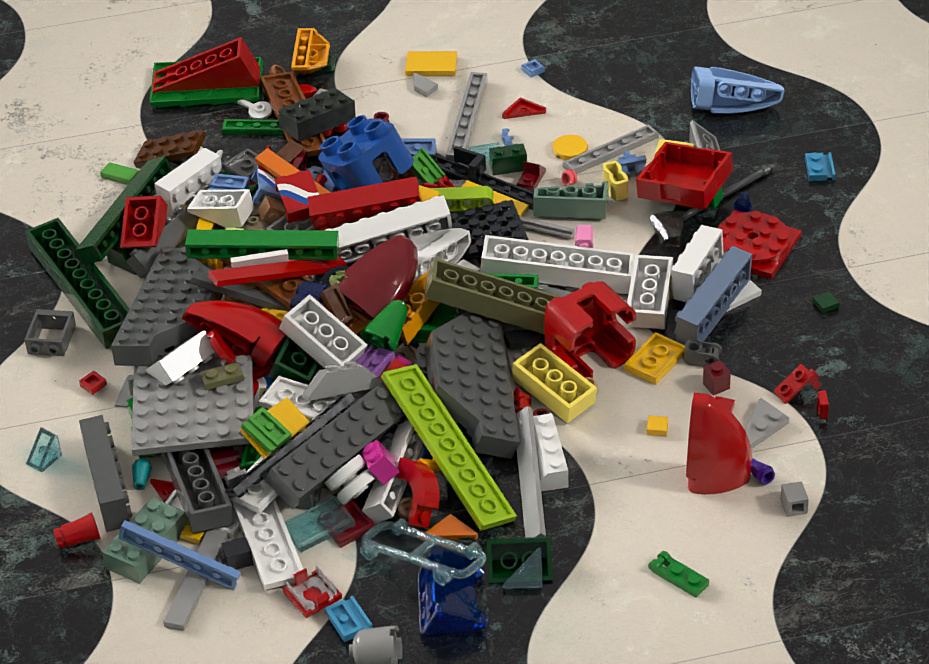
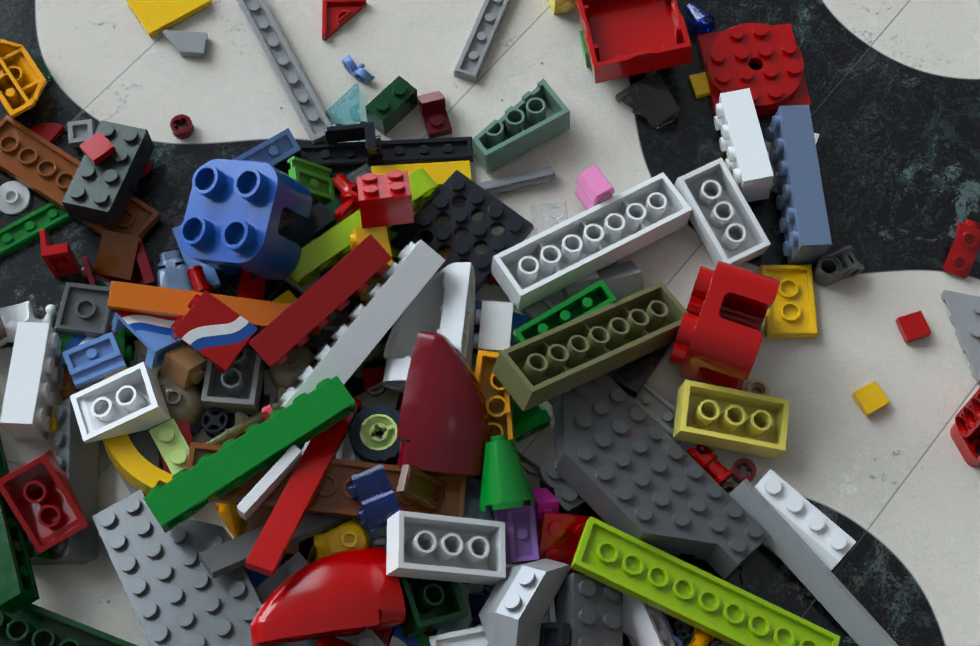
camera: 40 degrees left, 25 degrees up
(255, 136) = (58, 257): none -> red panel
(318, 94) = (97, 148): none -> tile
(448, 180) = (385, 199): none -> red brick
(569, 146) = (441, 42): yellow tile -> none
(569, 177) = (481, 91): coral plate -> none
(616, 180) = (537, 64): light yellow brick -> none
(632, 163) = (544, 29): medium blue hips -> none
(716, 377) = (881, 292): dark red brick -> none
(826, 302) = (893, 109): dark green tile -> none

